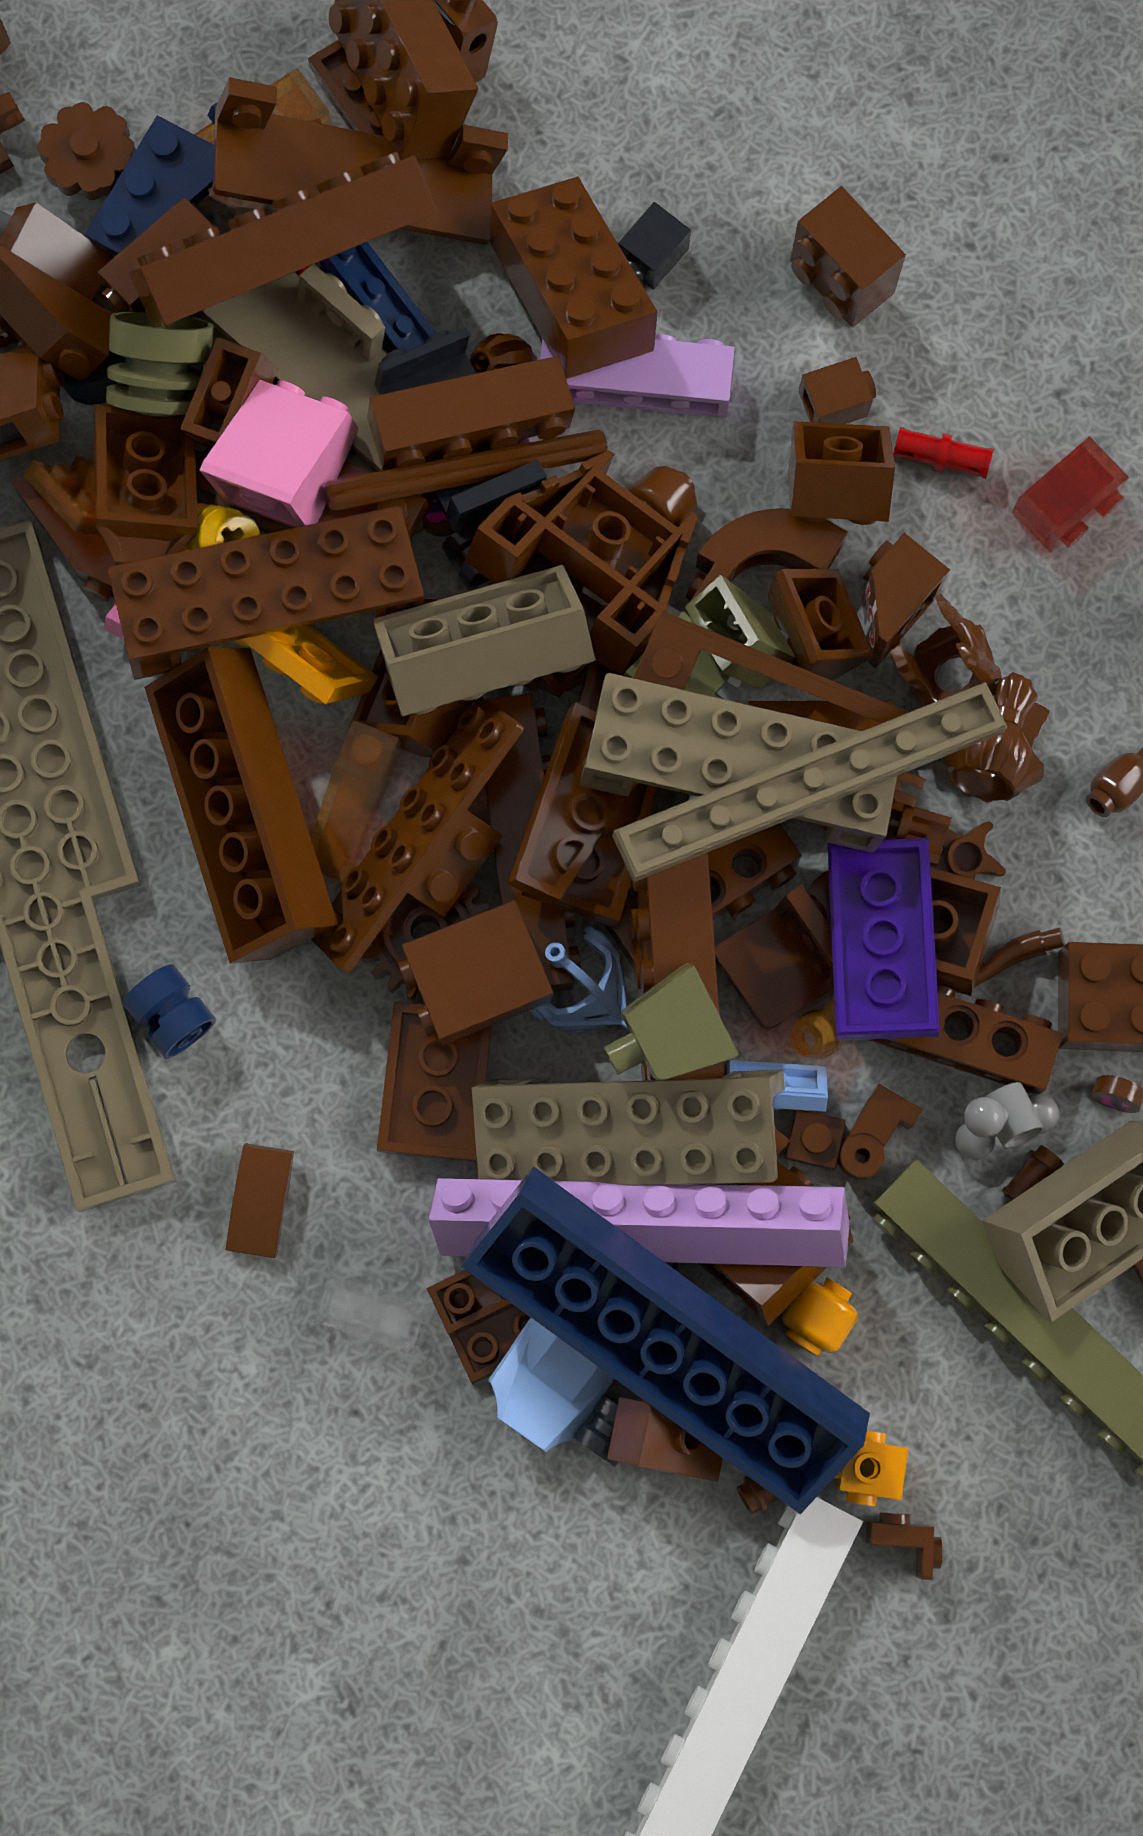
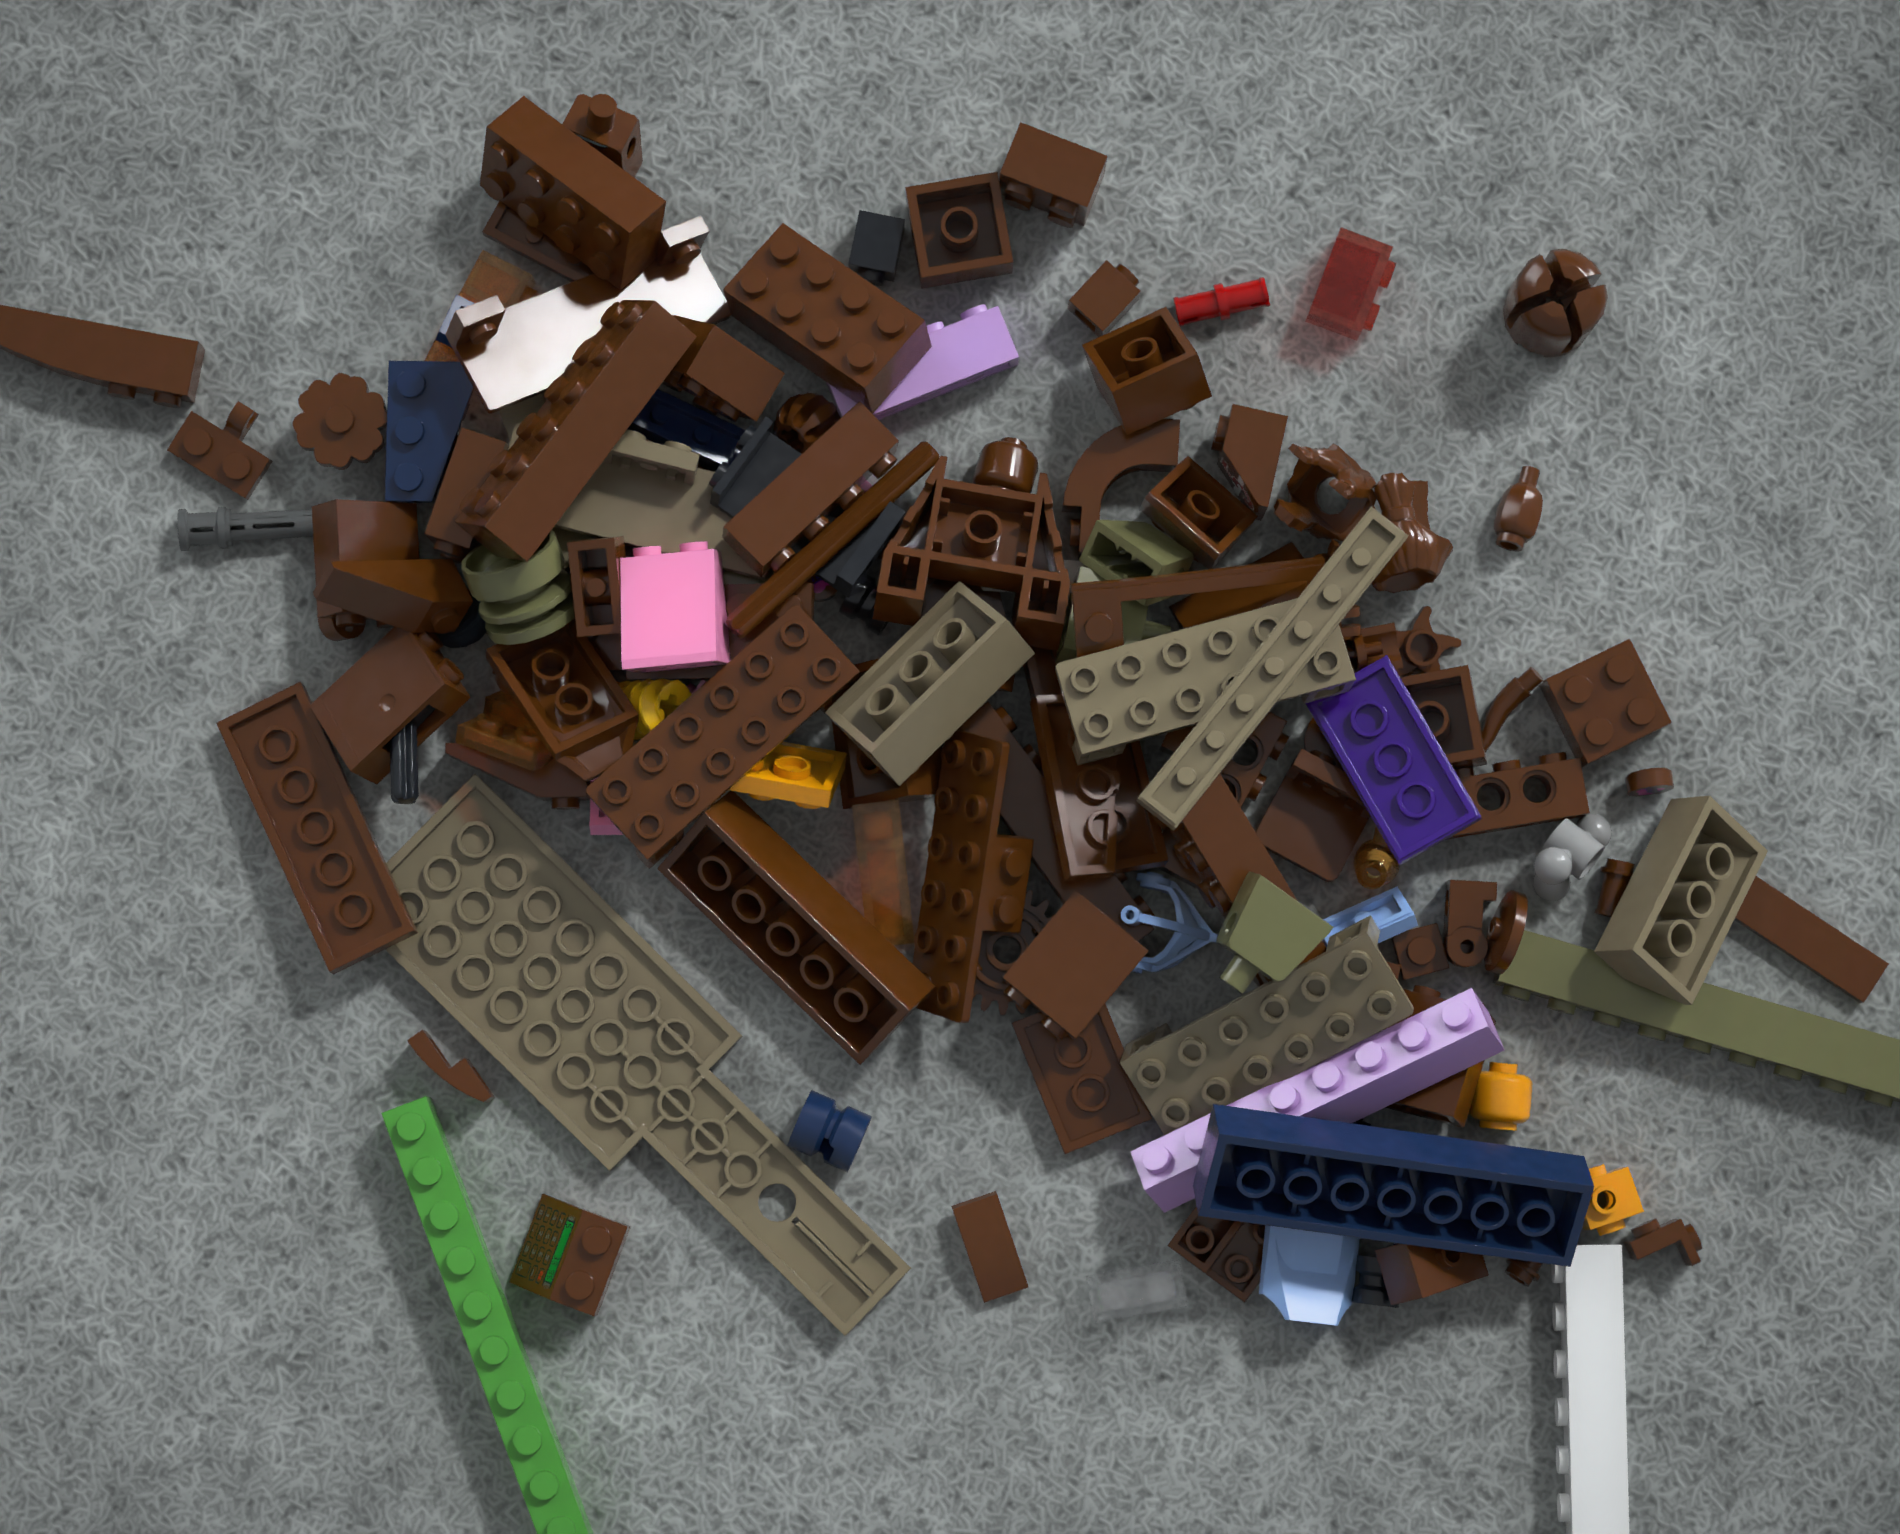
camera: 30 degrees left, 5 degrees up
(444, 269) = (723, 374): none -> reddish brown brick
(735, 265) = (959, 230): none -> reddish brown brick
(906, 1159) = (1506, 932): none -> reddish brown piece

